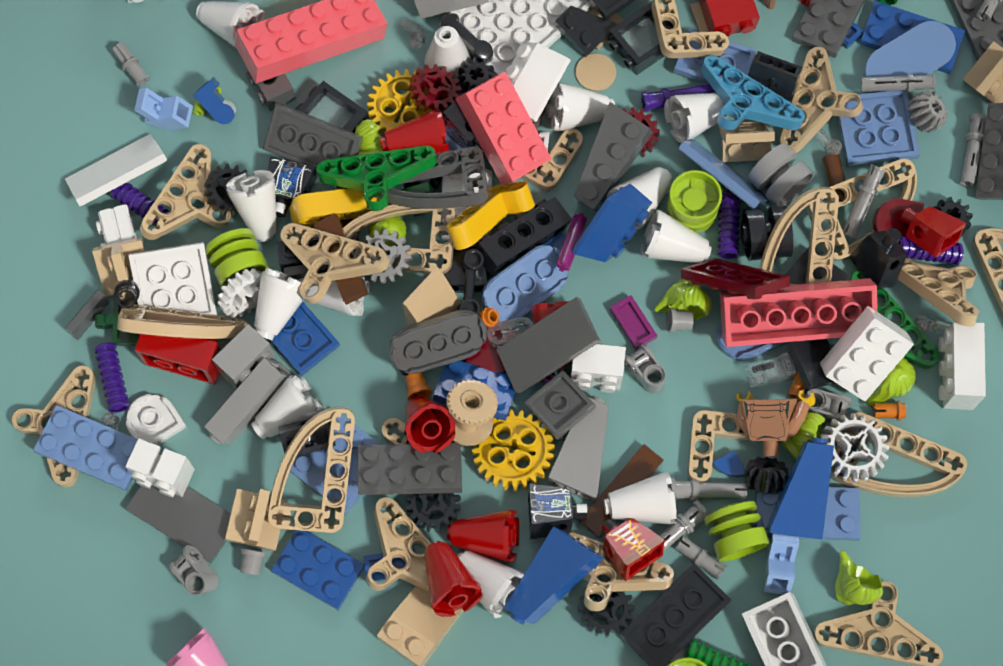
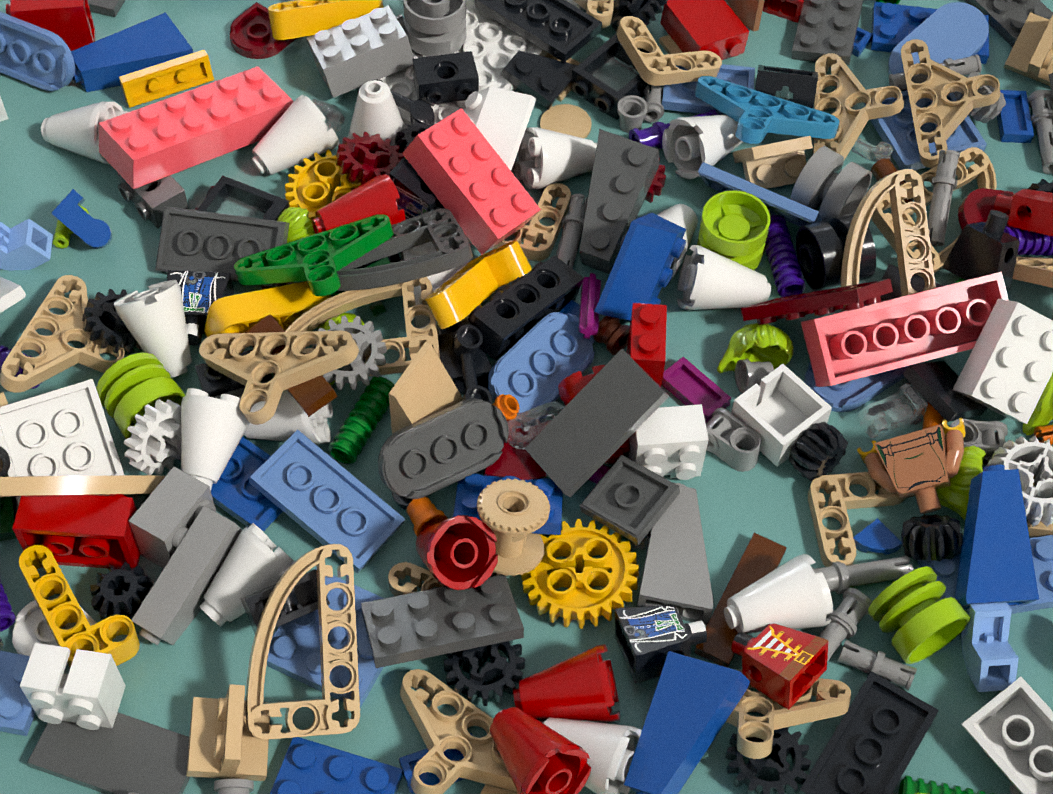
camera: 15 degrees left, 15 degrees down
(163, 409) = (67, 610): none -> yellow beam
(191, 402) = (108, 590): none -> black gear
(350, 362) = (326, 499): none -> medium blue plate
(382, 55) = (294, 137): none -> white cone
(388, 302) = (362, 421): none -> green piece
(518, 14) = (445, 77): none -> black brick
(573, 177) = (572, 229): none -> light grey pin
(584, 268) = (612, 334): none -> copper wheel
(601, 291) = (648, 338): none -> red brick
(650, 69) = (632, 111): none -> light grey piece
(665, 72) = (654, 102): none -> light grey pin
(688, 361) = (782, 412): none -> white piece
(705, 392) = (818, 451): none -> black gear
(890, 125) = (937, 87): none -> tan beam
(954, 130) = (1015, 118): none -> blue tile

